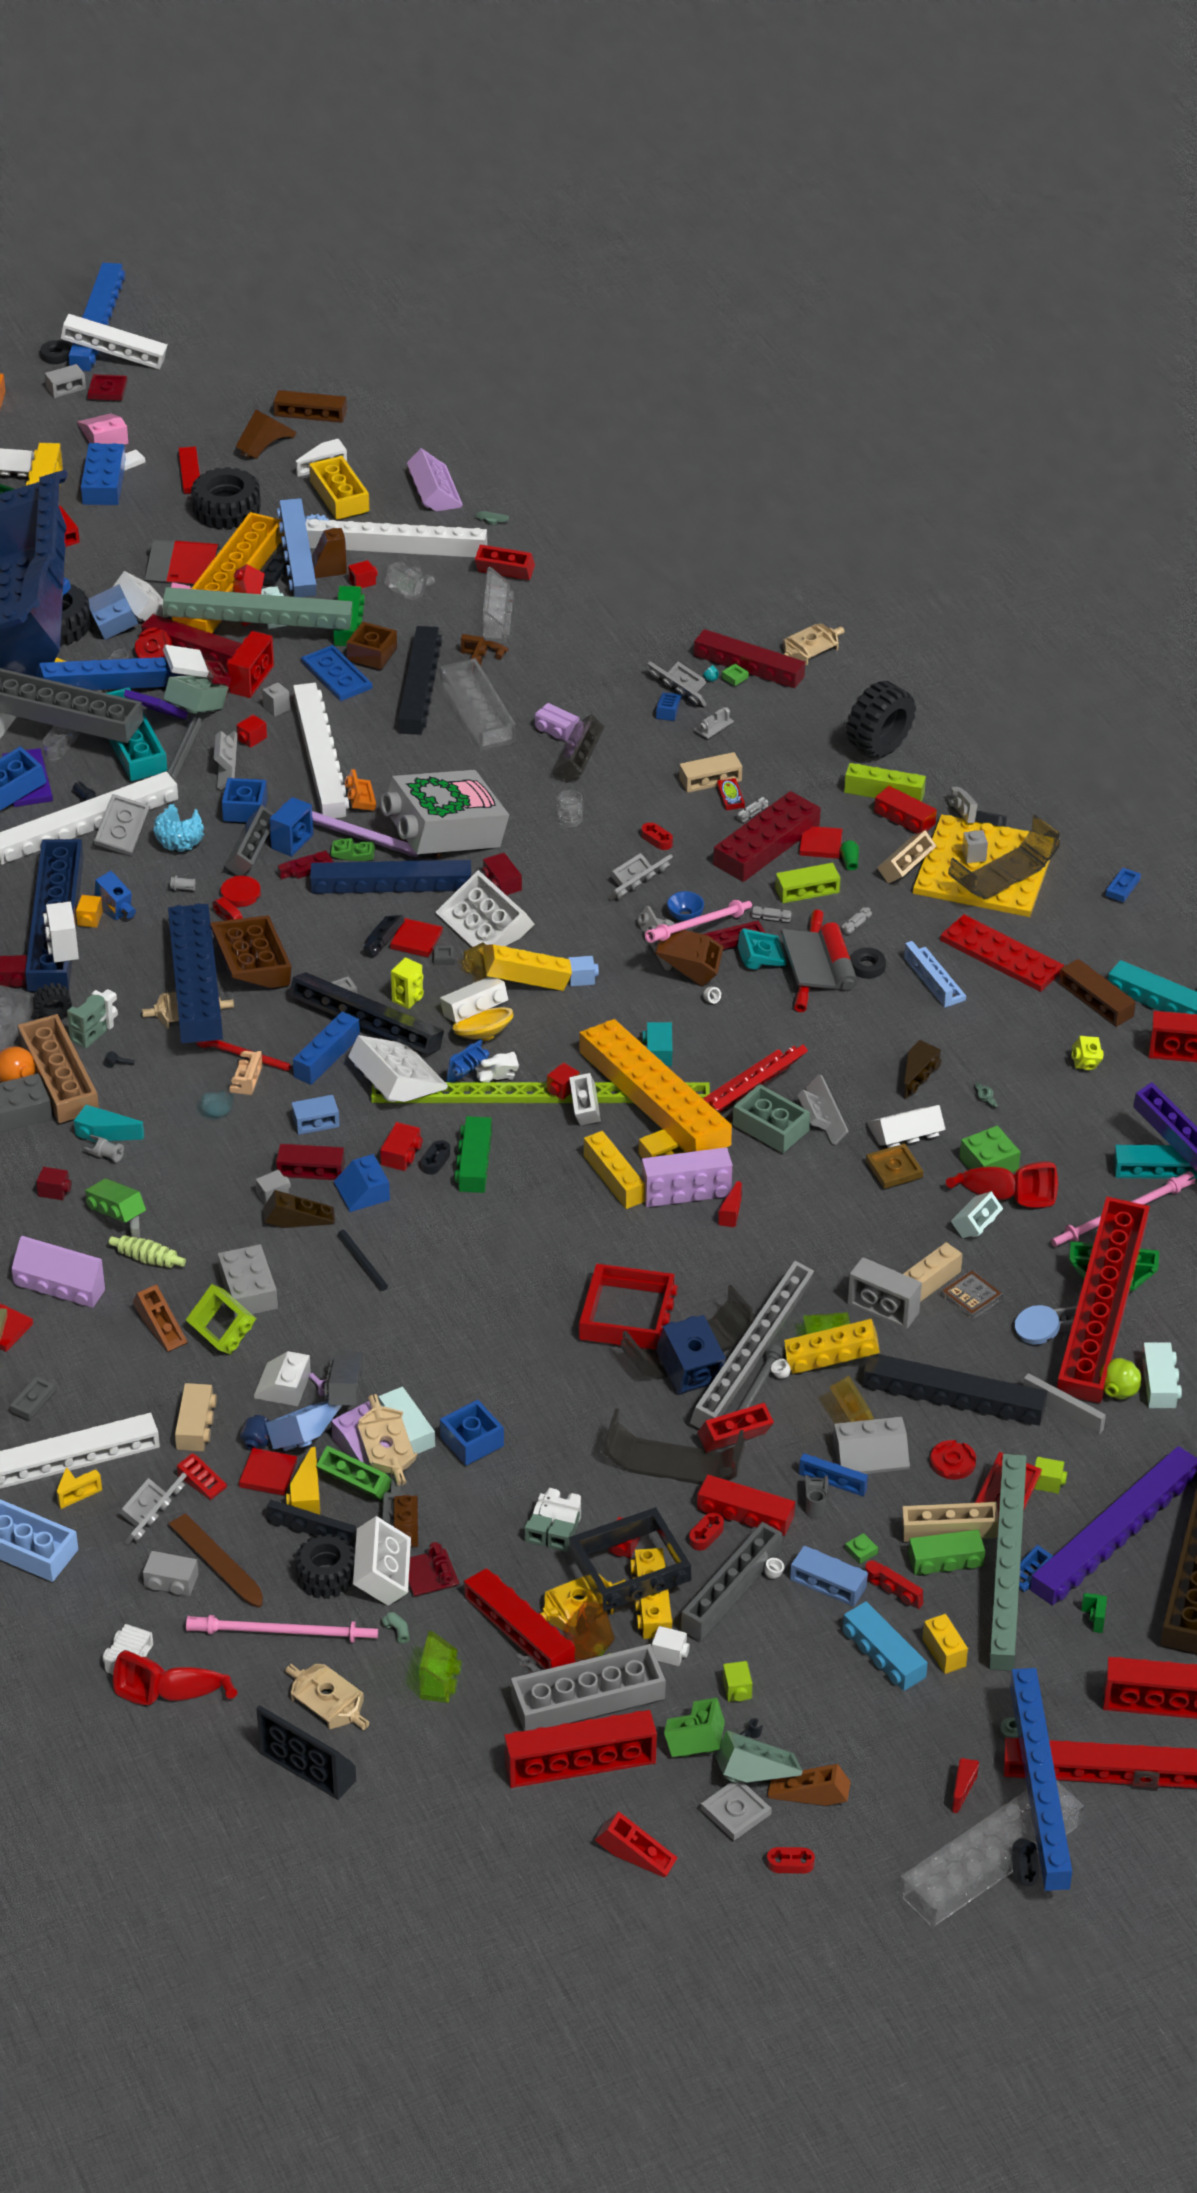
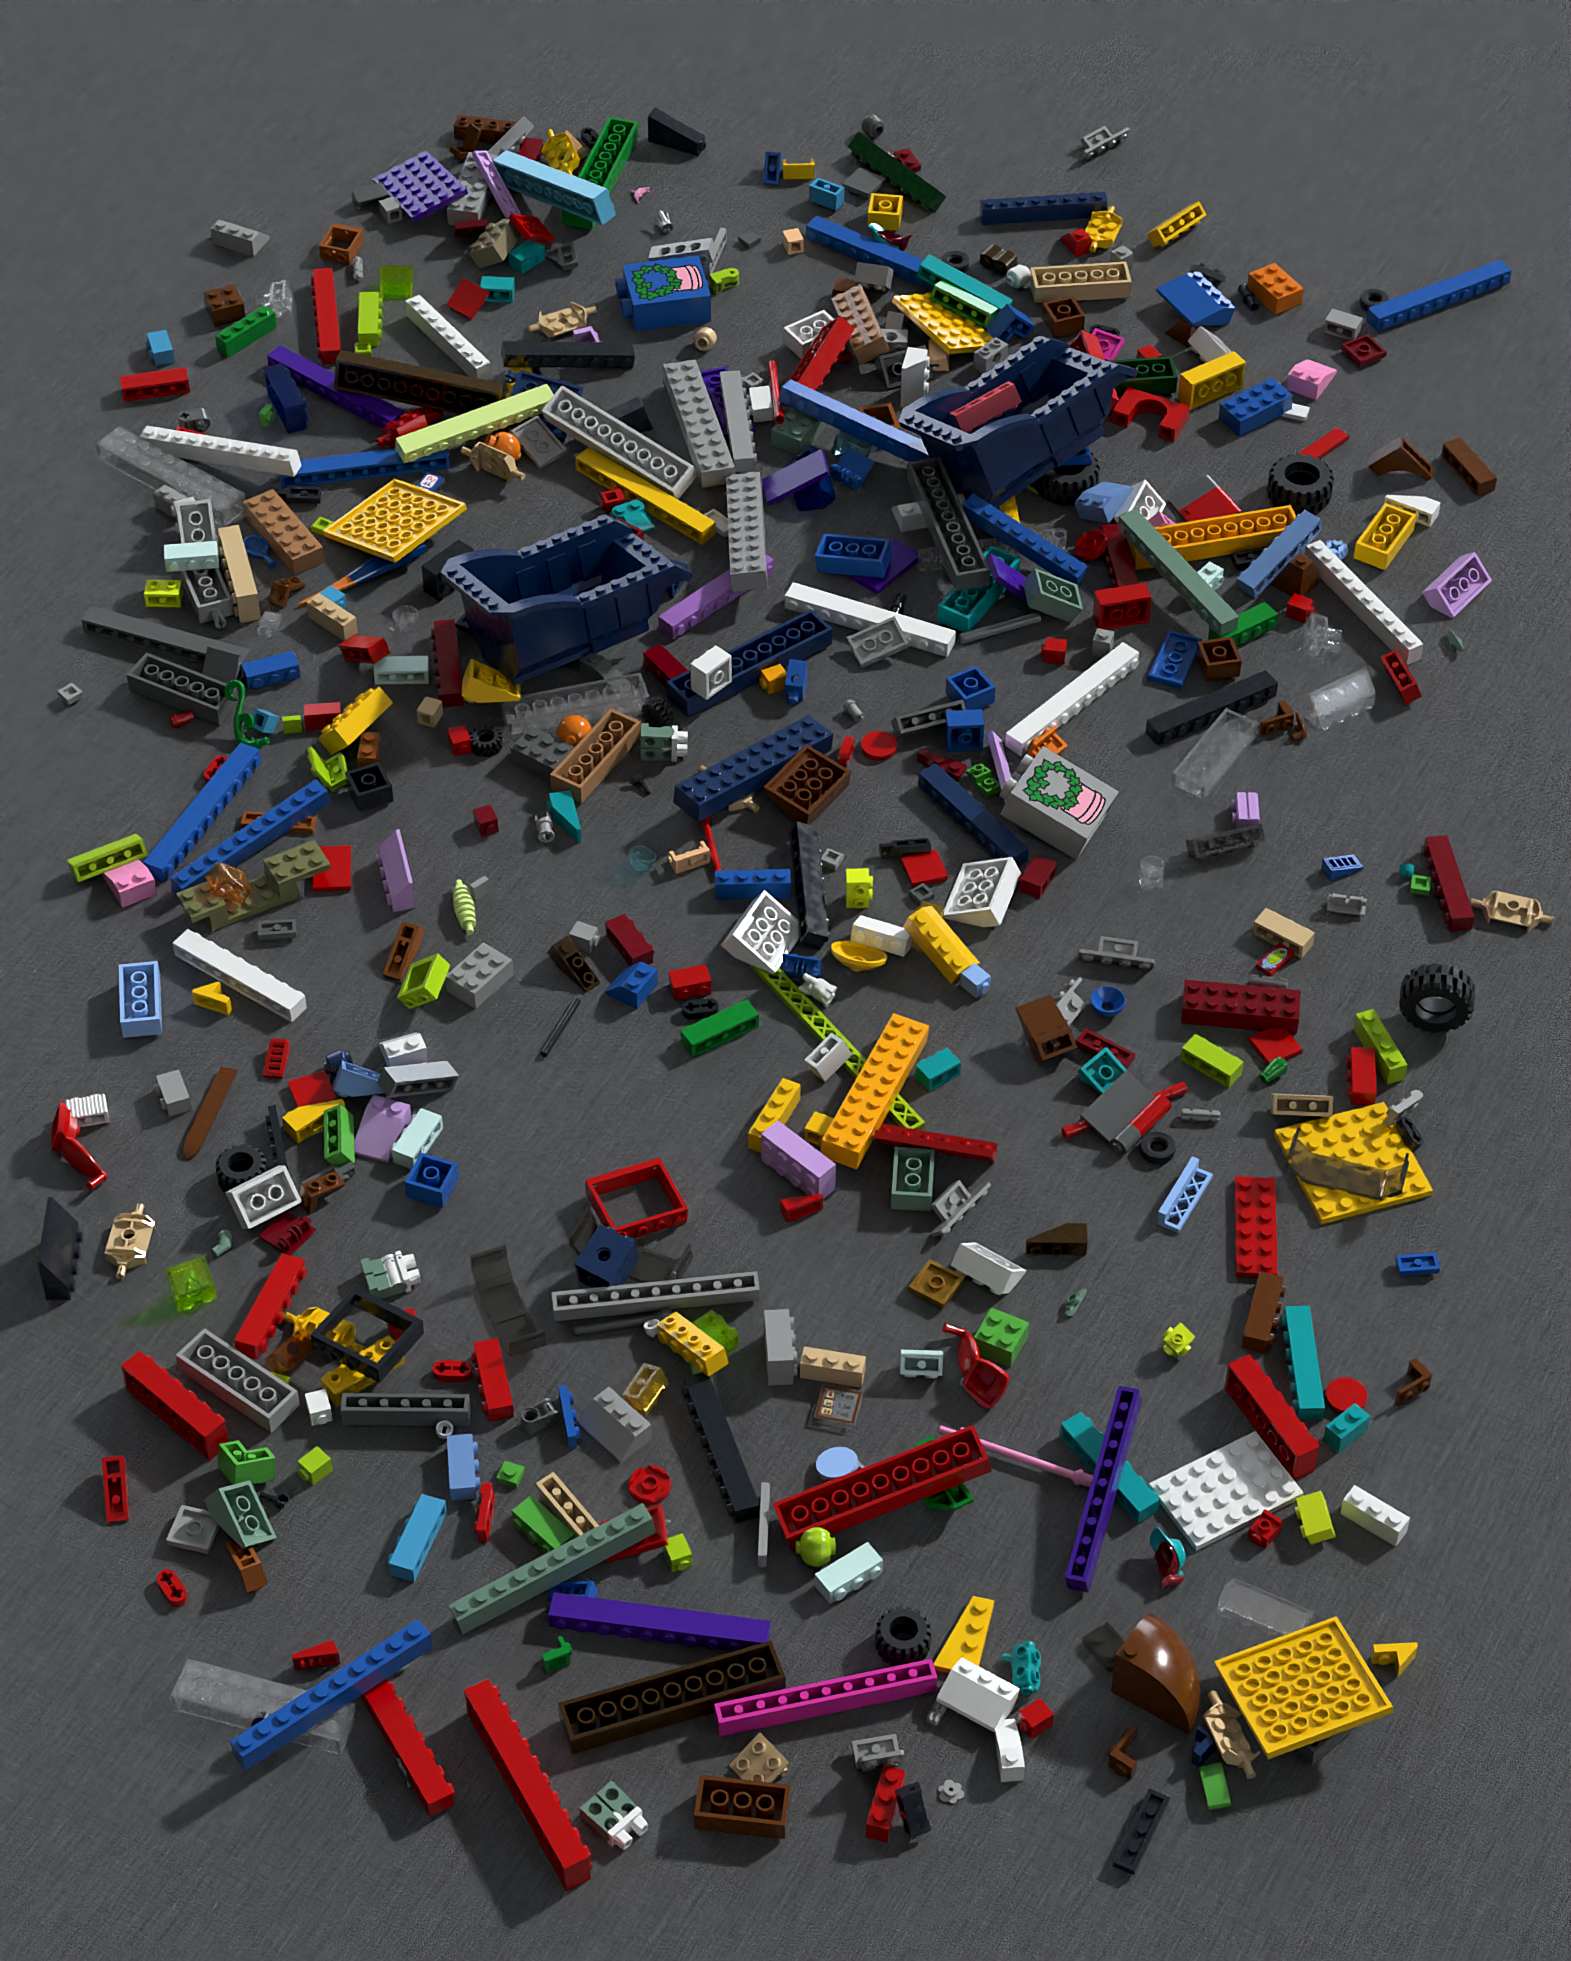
camera: 55 degrees right, 5 degrees up
(114, 341) = (1410, 320): white brick -> none
(115, 1200) = (489, 859): bright green brick -> none
(145, 1503) = (226, 1043): light grey bracket -> none
(176, 833) = (899, 672): medium azure hair -> none
(185, 661) = (1076, 568): white tile -> none
(195, 1417) = (327, 1022): tan brick -> none
(212, 1624) = (146, 1141): bright pink bar -> none
(218, 674) = (1085, 595): dark red panel -> none
(226, 756) = (1009, 649): light grey bracket -> none
(248, 581) = (1203, 552): red slope -> none
(315, 1114) = (680, 917): medium blue brick -> none
(386, 1424) = (381, 1121): tan plate -> none
(559, 1080) = (838, 1028): red brick -> none
(657, 836) = (1181, 943): red beam -> none
(662, 931) = (1031, 996): bright pink bar -> none
(683, 679) = (1376, 857): light grey bracket -> none
(714, 992) = (1021, 1072): white hinge -> none
(725, 1429) = (560, 1329): red brick -> none
(771, 914) = (1156, 1059): light grey axle -> none
(945, 1643) = (447, 1574): yellow brick -> none
(974, 846) = (1351, 1140): light grey brick -> none

